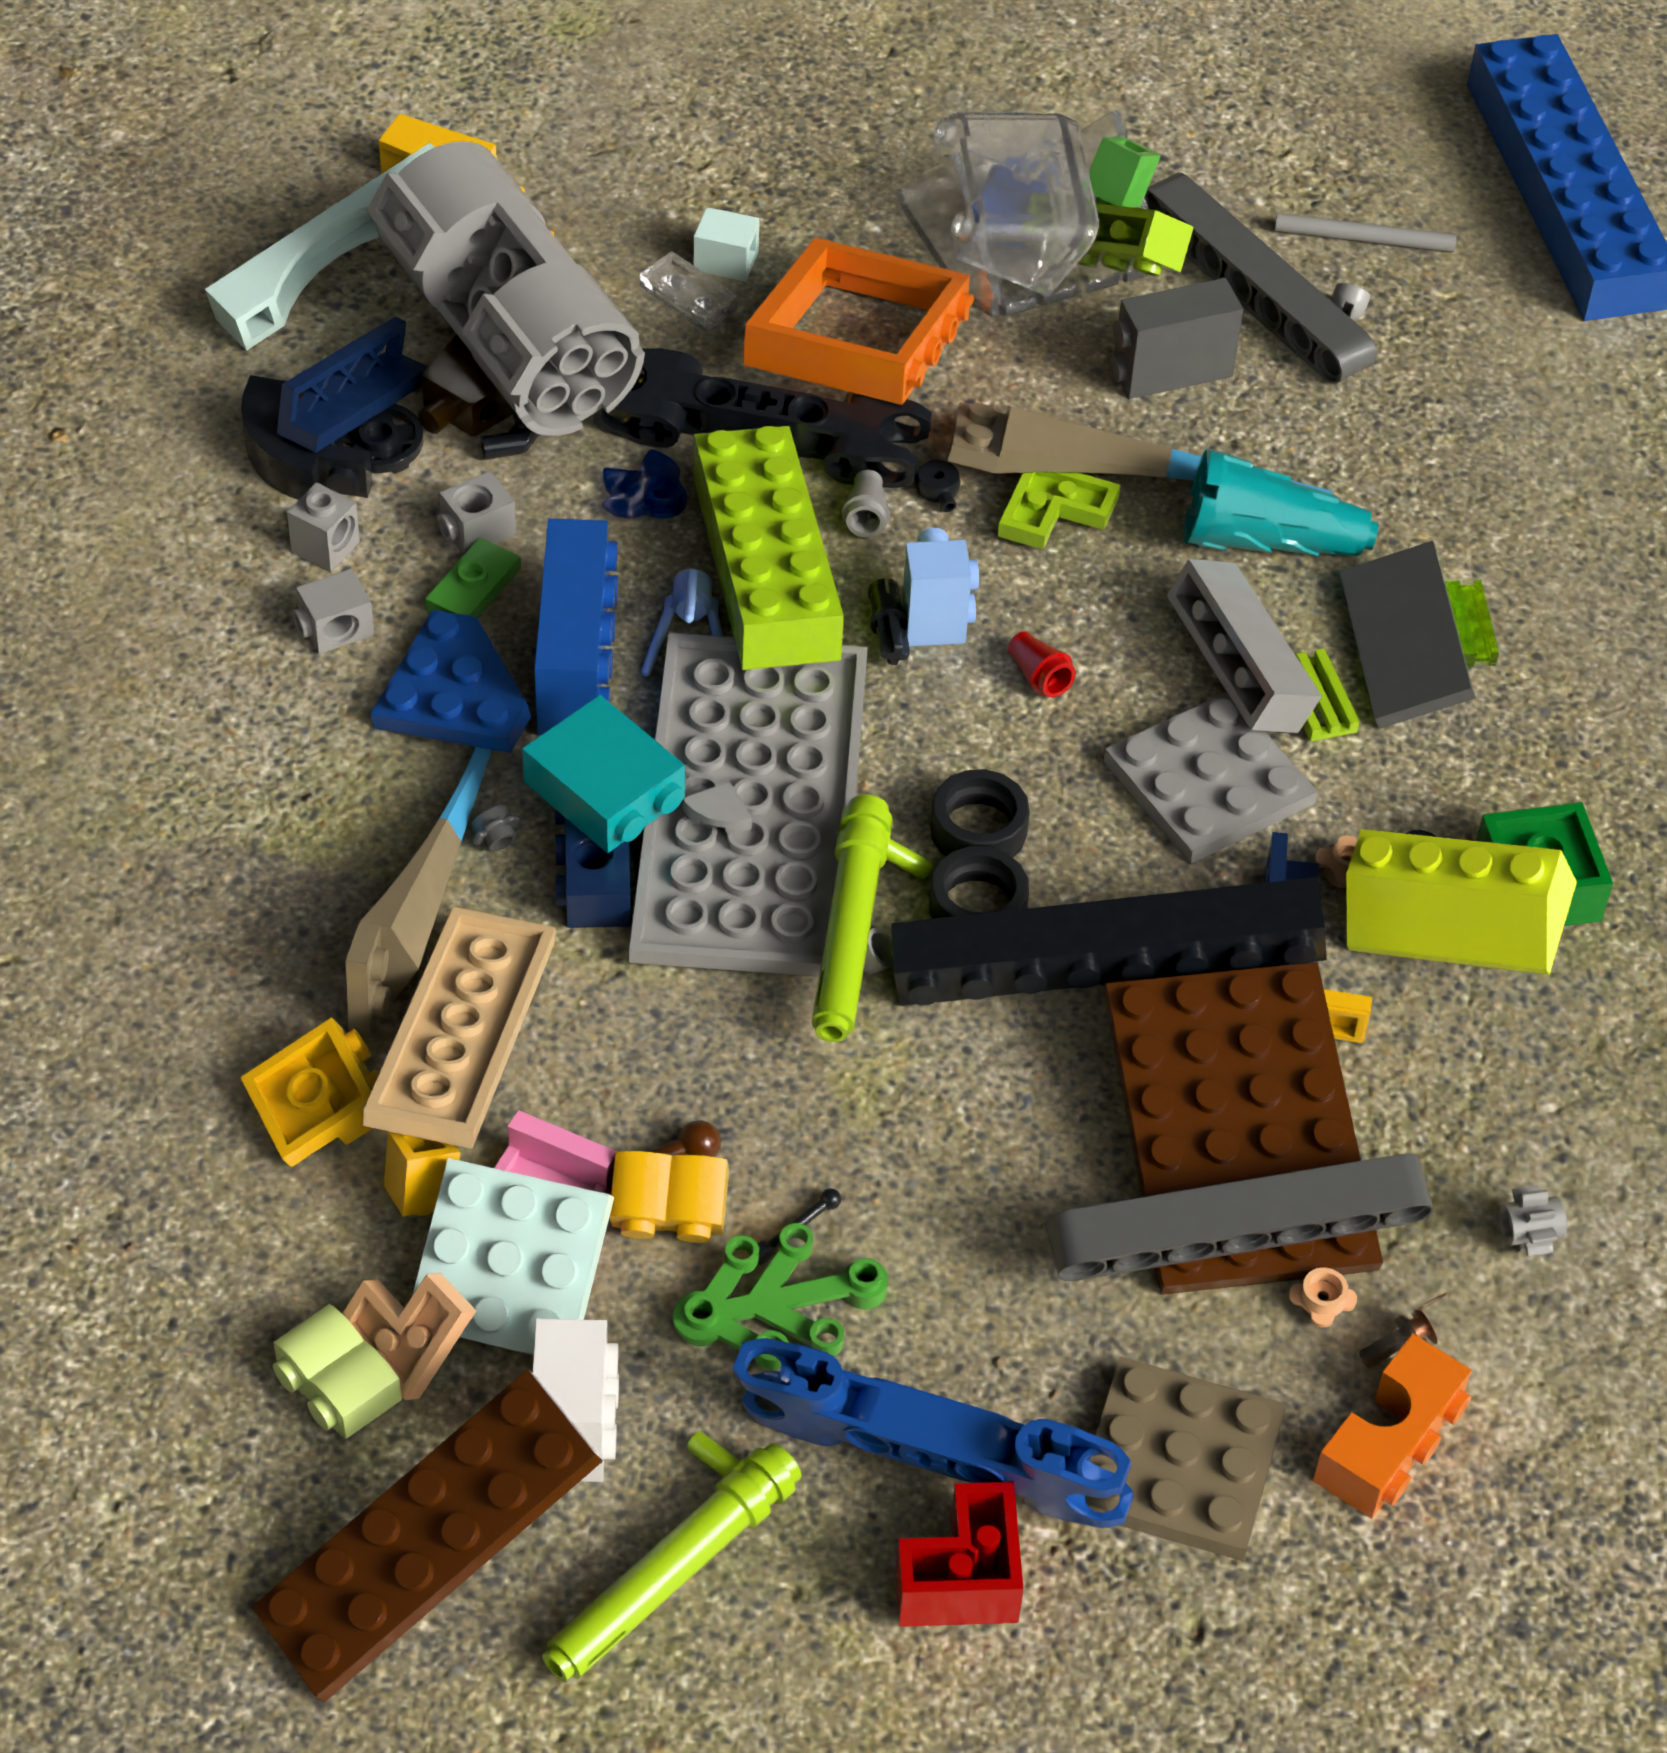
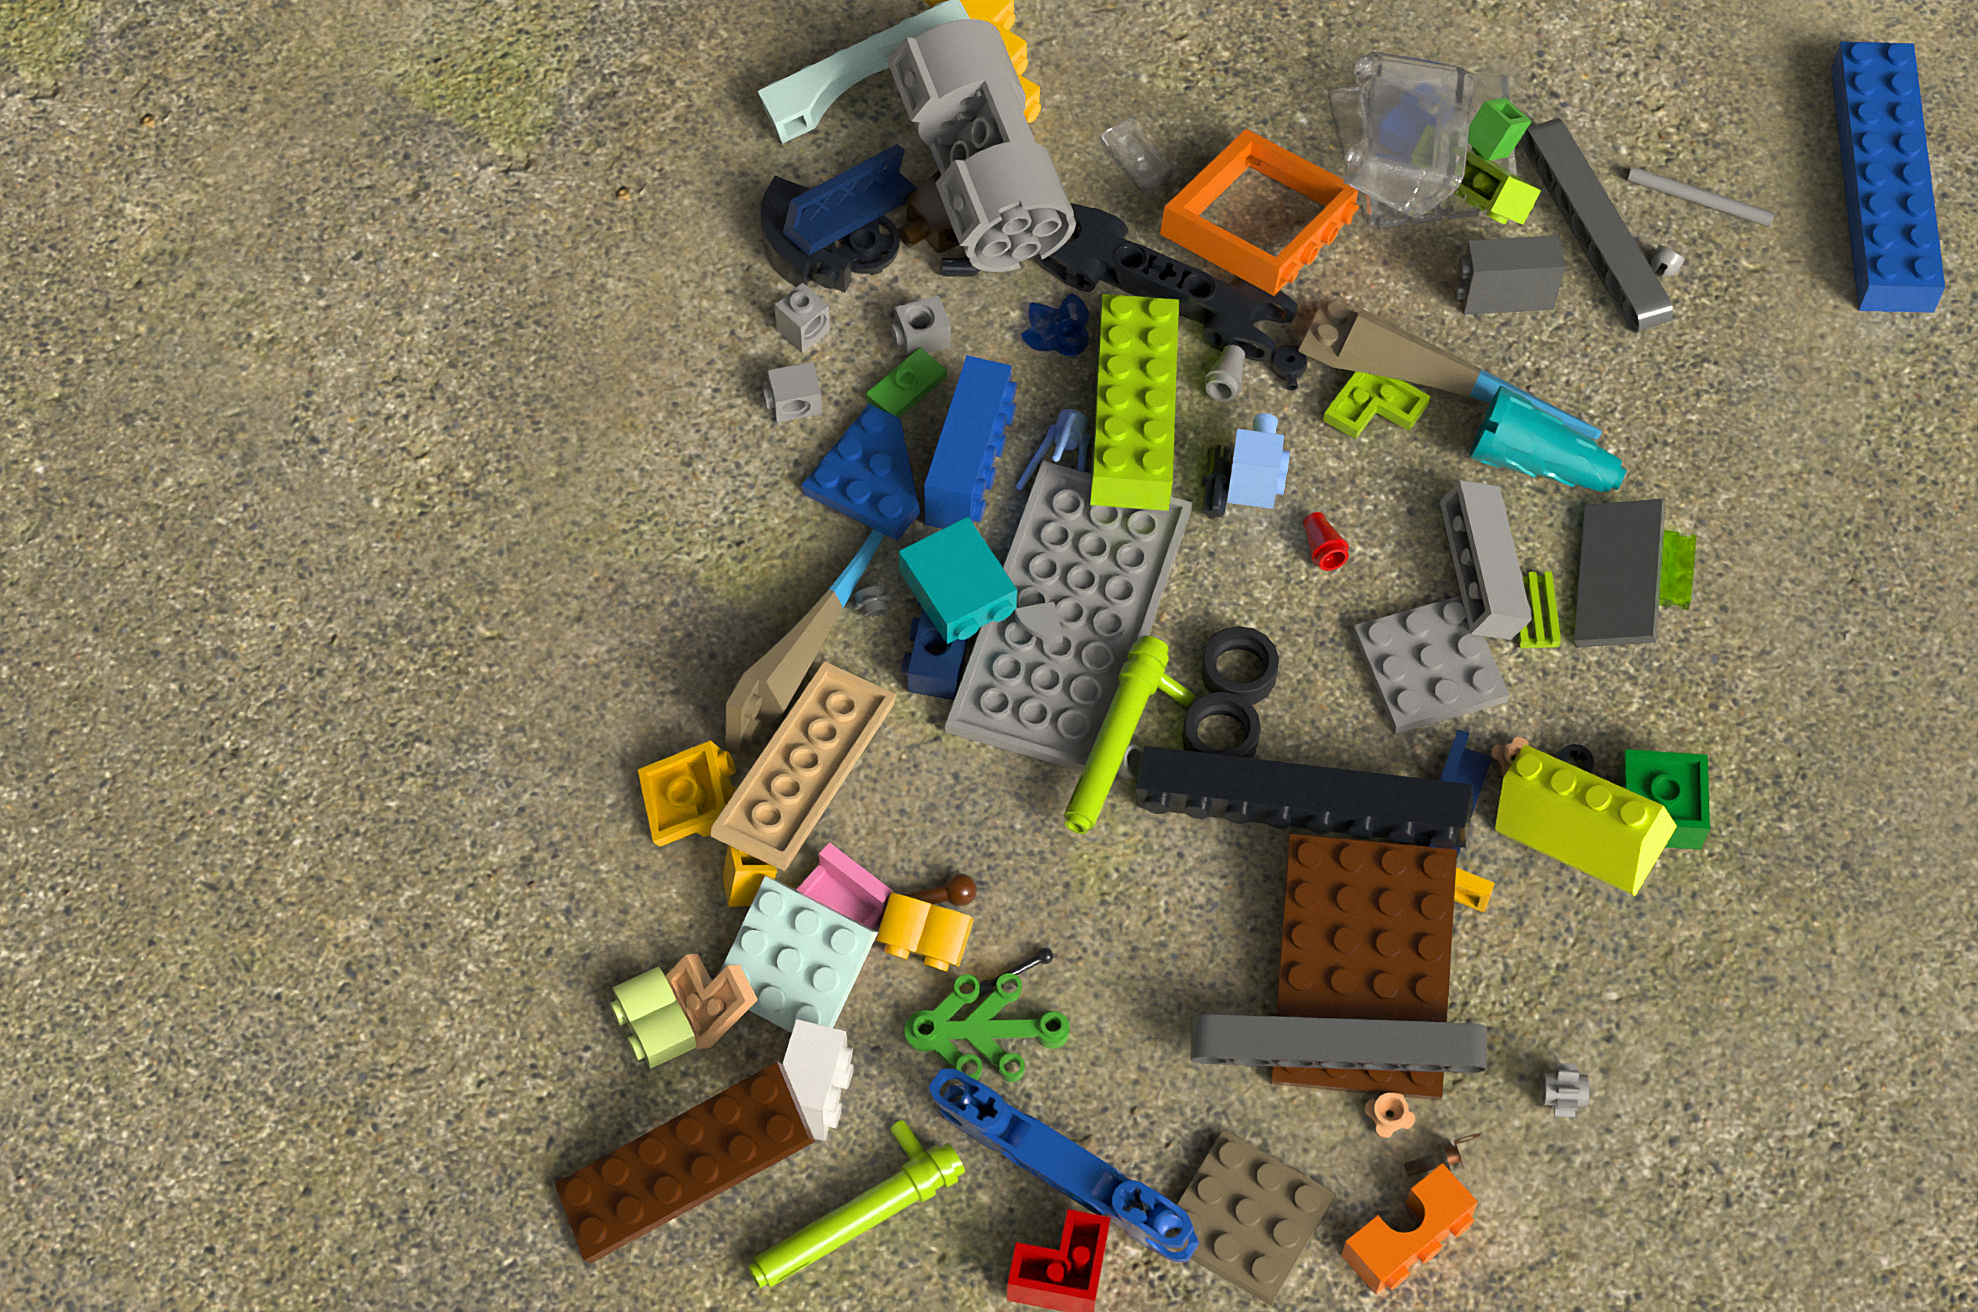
camera: 15 degrees right, 10 degrees up
(726, 244) = (1176, 118): light aqua panel -> none

